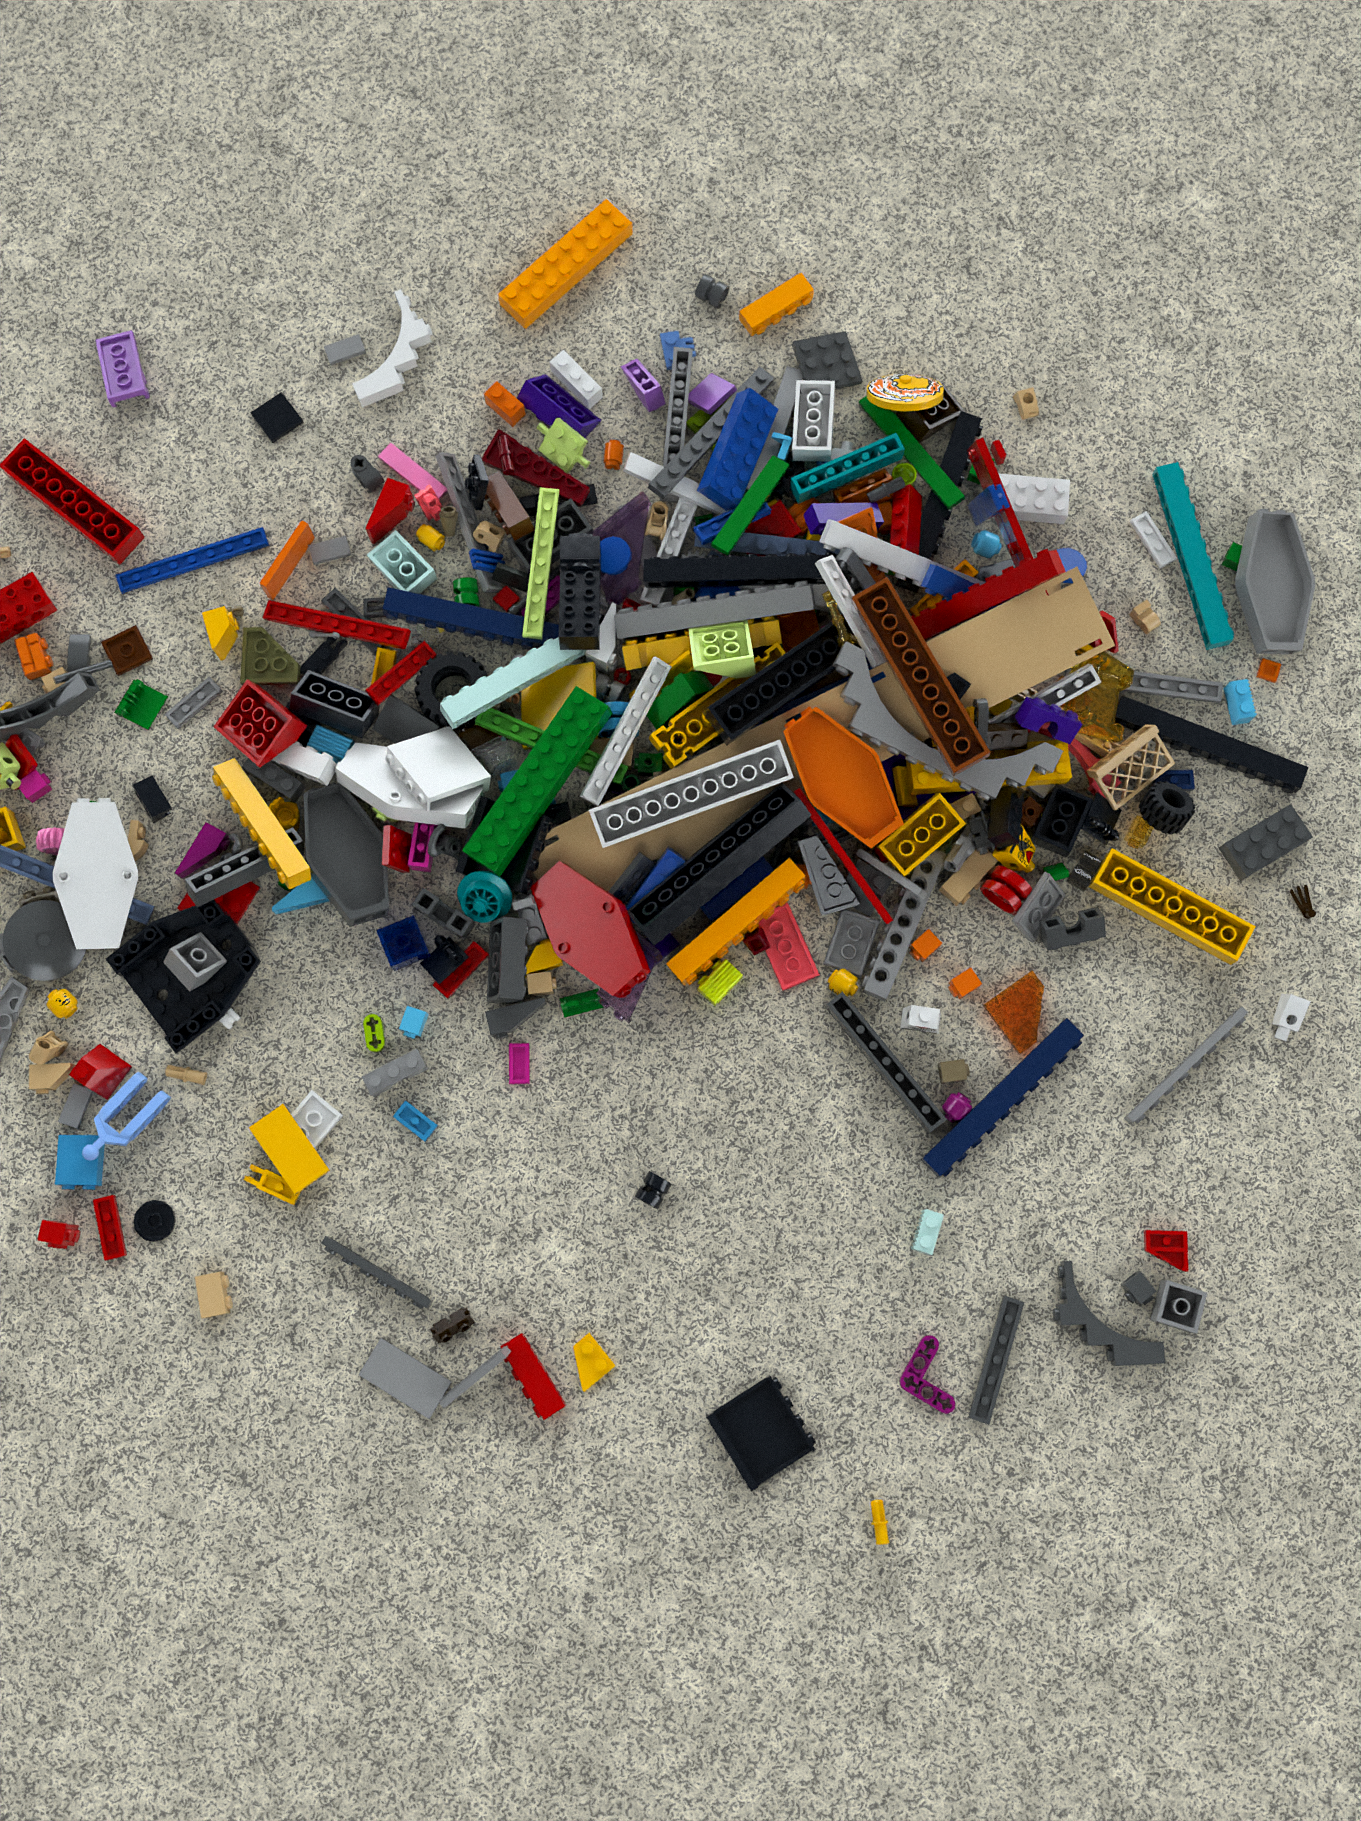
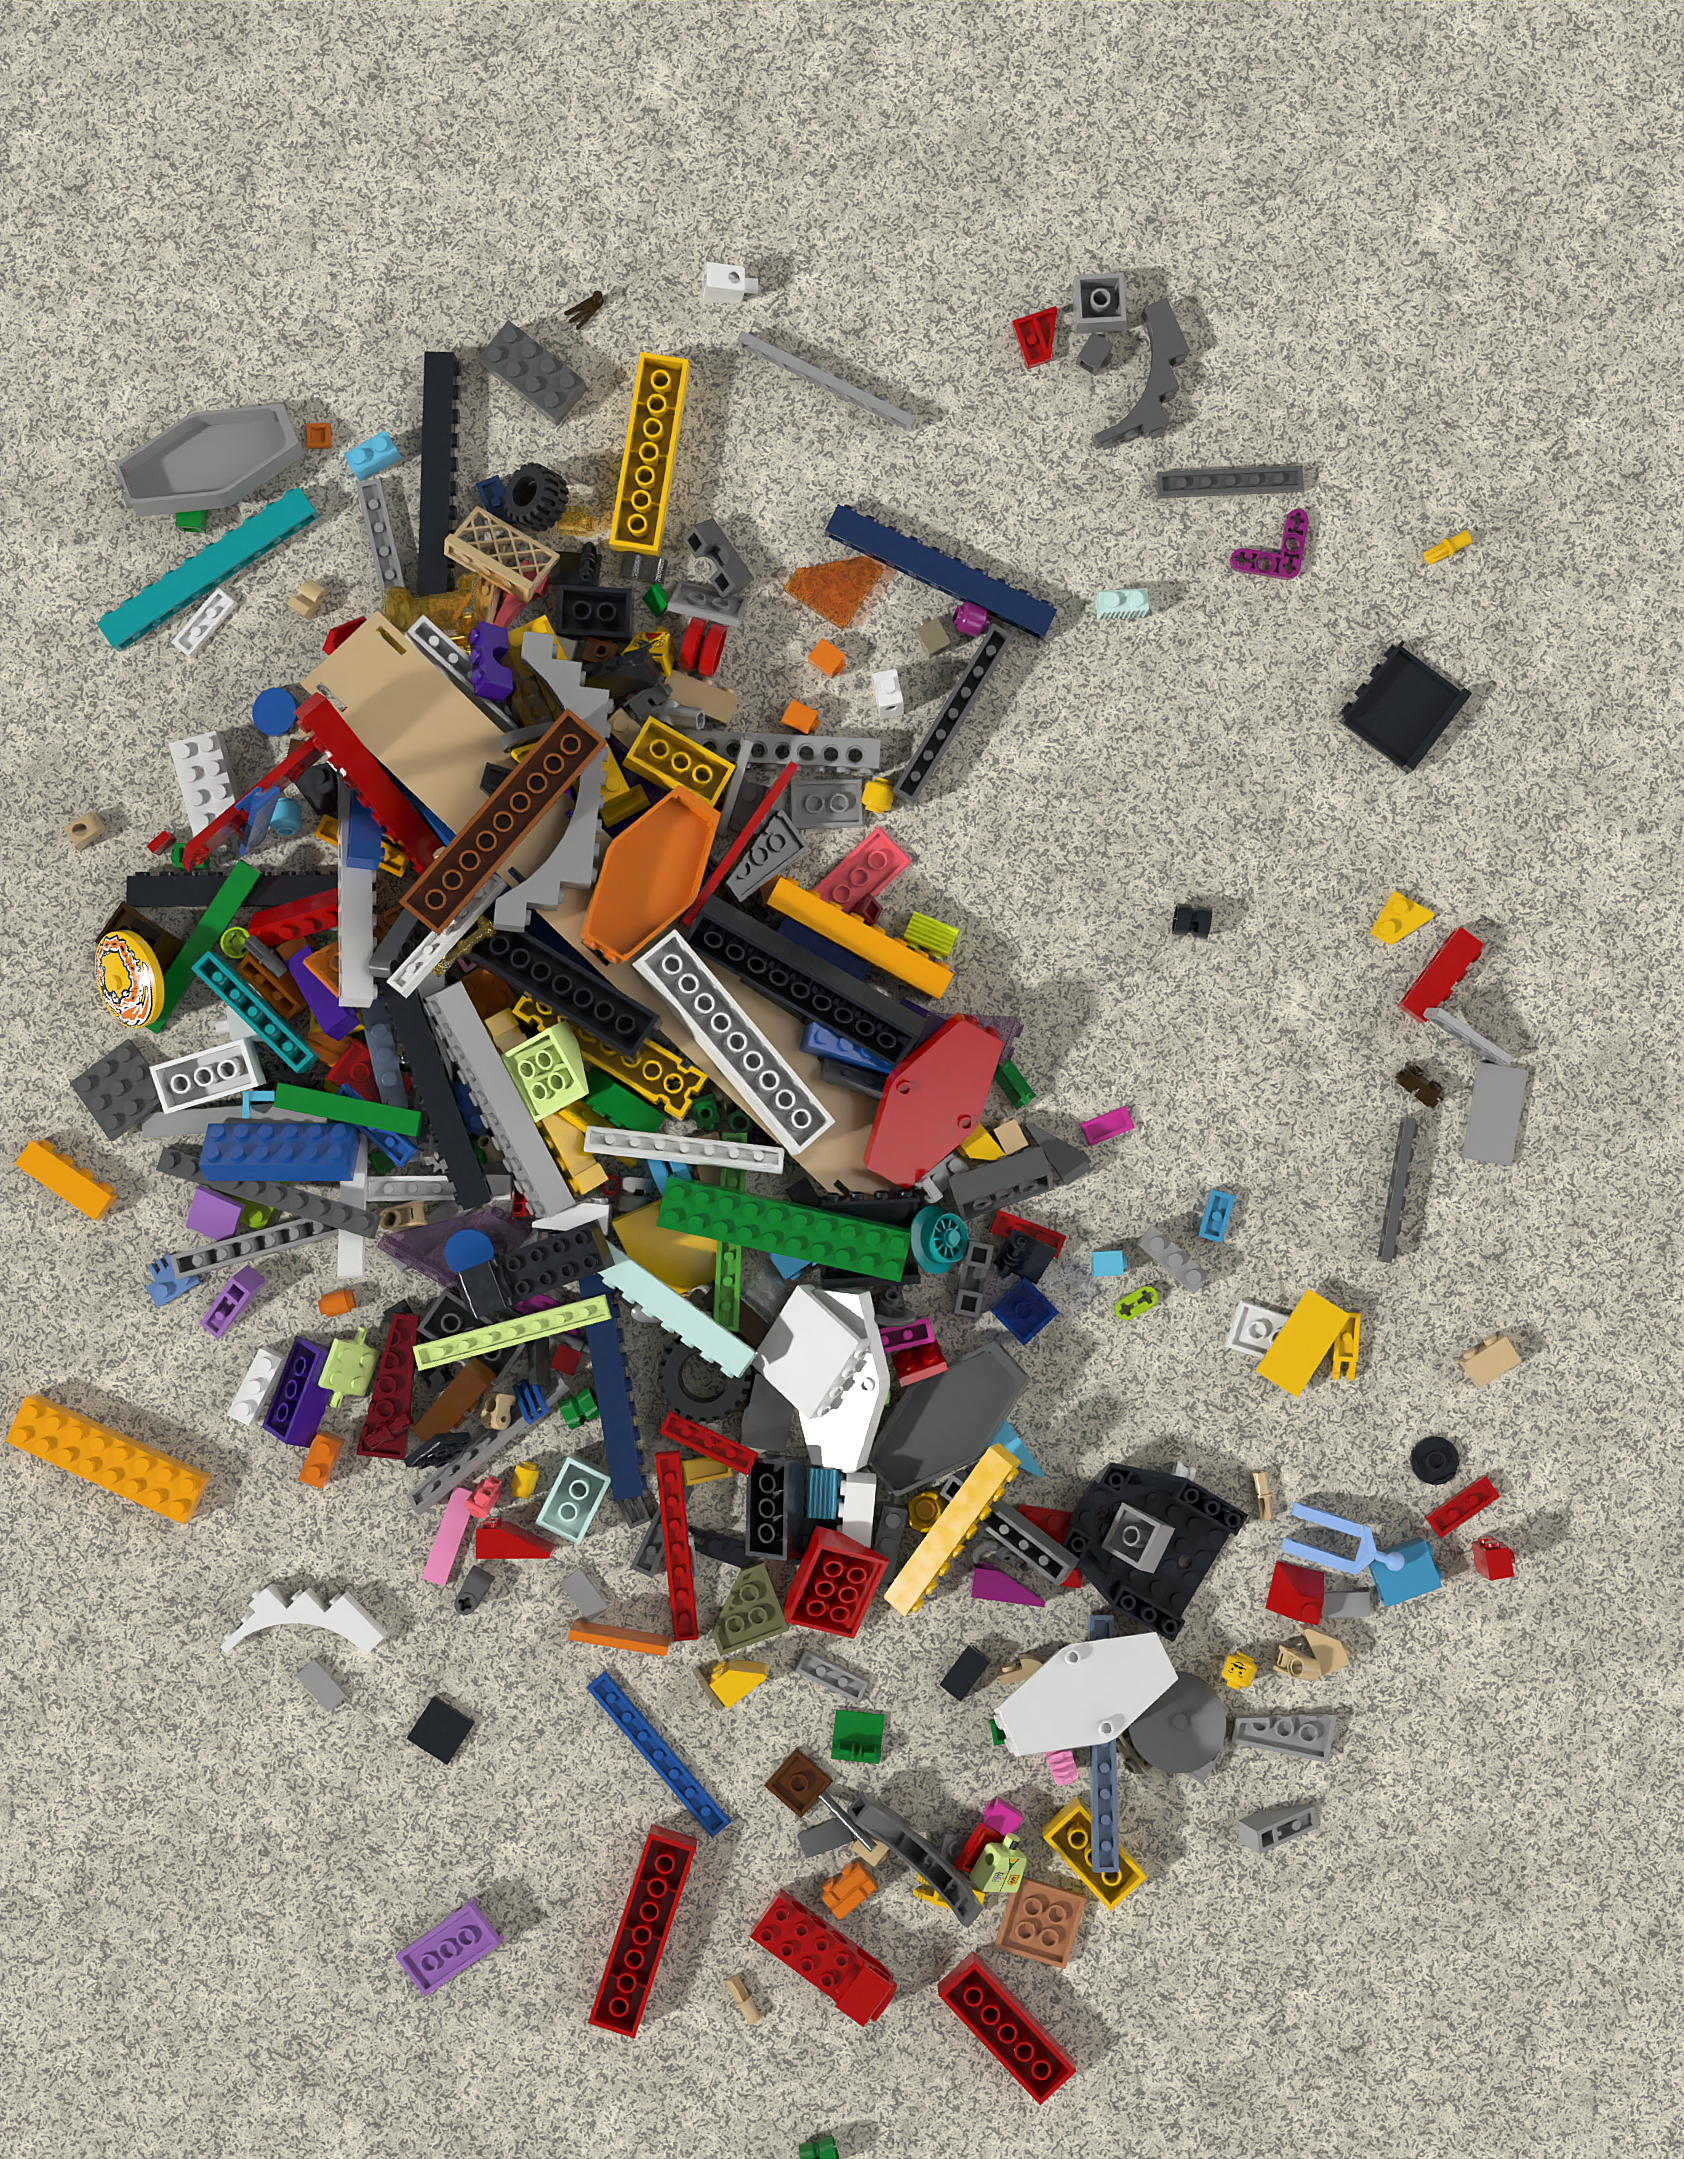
camera: 115 degrees left, 10 degrees up
(449, 520) = (495, 1466): dark tan cone -> none
(710, 290) = (78, 1264): dark grey wheel -> none

